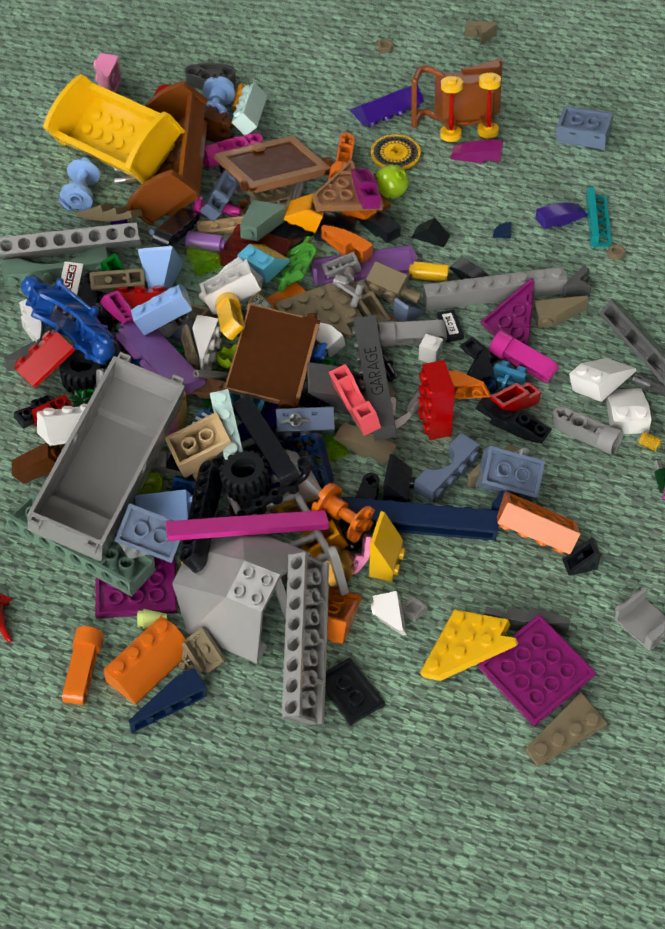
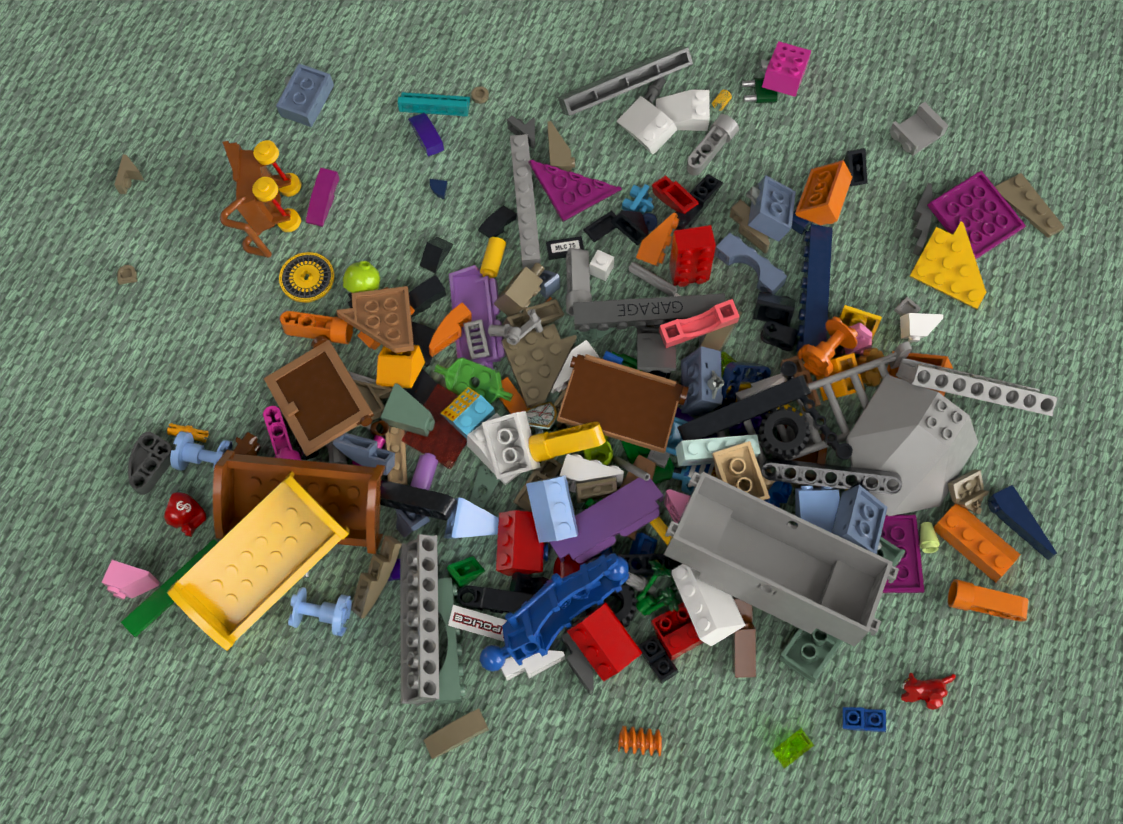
camera: 85 degrees left, 15 degrees up
(110, 280) = (484, 563): dark tan slope -> none
(112, 302) = (530, 567): dark pink slope -> none
(202, 261) = (454, 480): clear neon green slope -> none
(246, 525) = (858, 430): dark pink tile -> none
(249, 108) = (224, 416): light aqua brick -> none
(351, 692) = (1000, 363): black tile -> none
(366, 188) = (389, 296): magenta slope -> none
(386, 106) = (231, 277): dark purple slope -> none
(517, 353) = (609, 196): dark pink beam -> none

